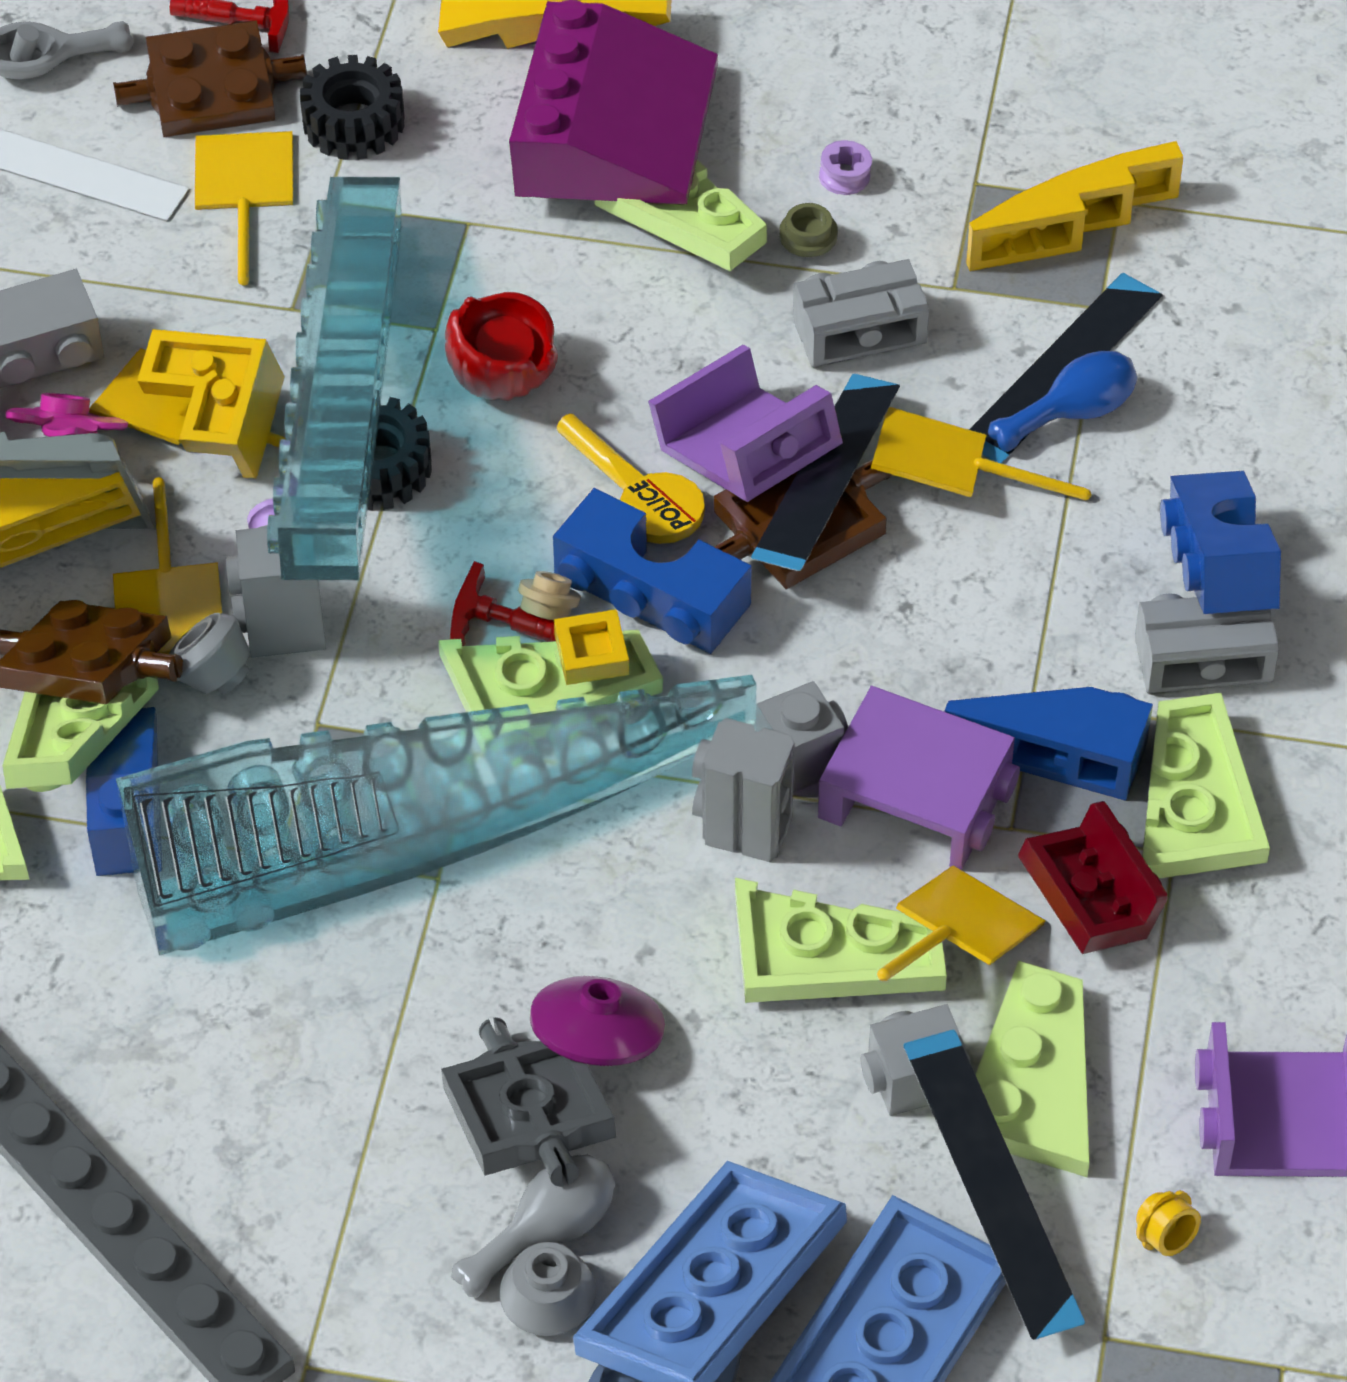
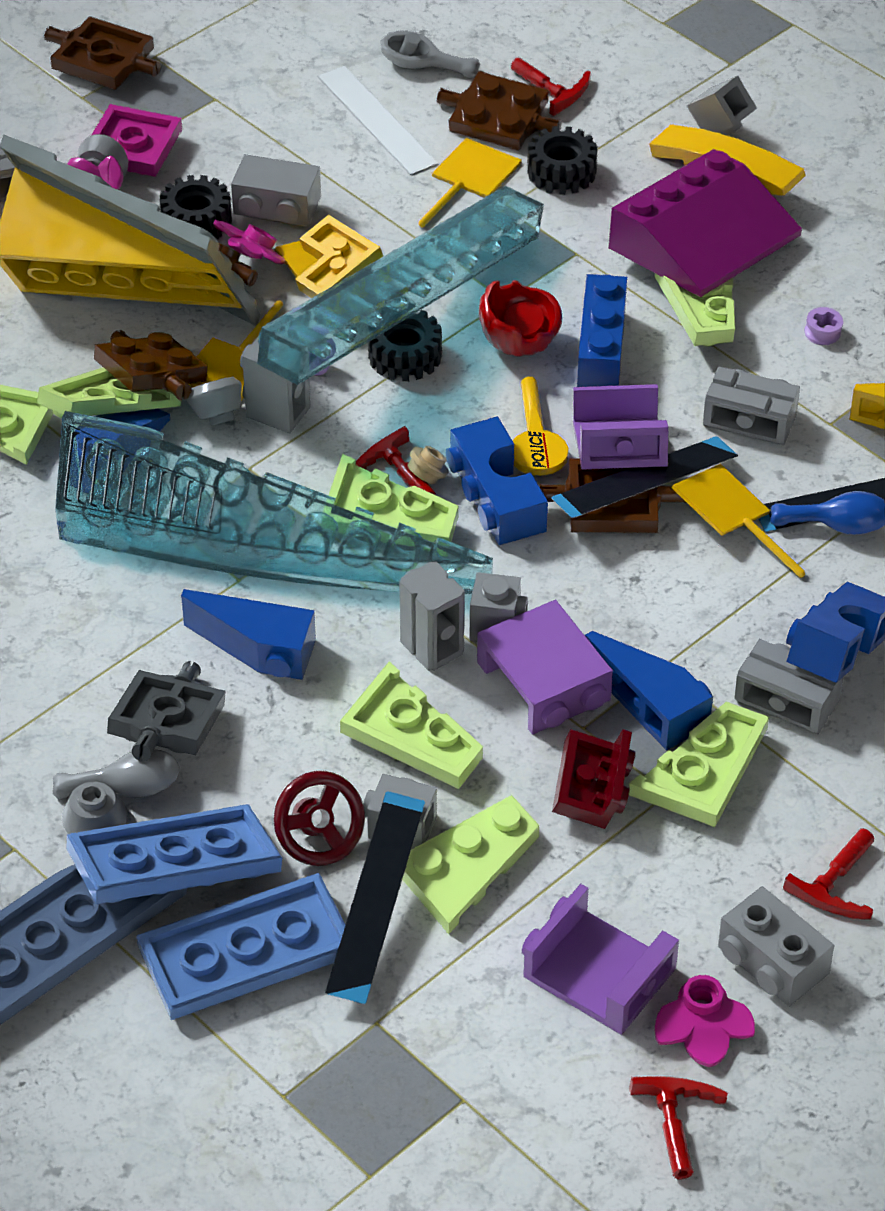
camera: 35 degrees right, 5 degrees down
(533, 936) = (258, 633): none -> blue slope
(591, 647) = (416, 496): yellow plate -> none
(597, 1020) = (247, 694): magenta dish -> none
(633, 335) = (602, 331): none -> blue arch
(808, 230) = (766, 348): olive plate -> none
(823, 1126) = (302, 817): none -> dark red piece
(966, 915) = (502, 754): yellow piece -> none
(1167, 1222) = (463, 980): yellow plate -> none

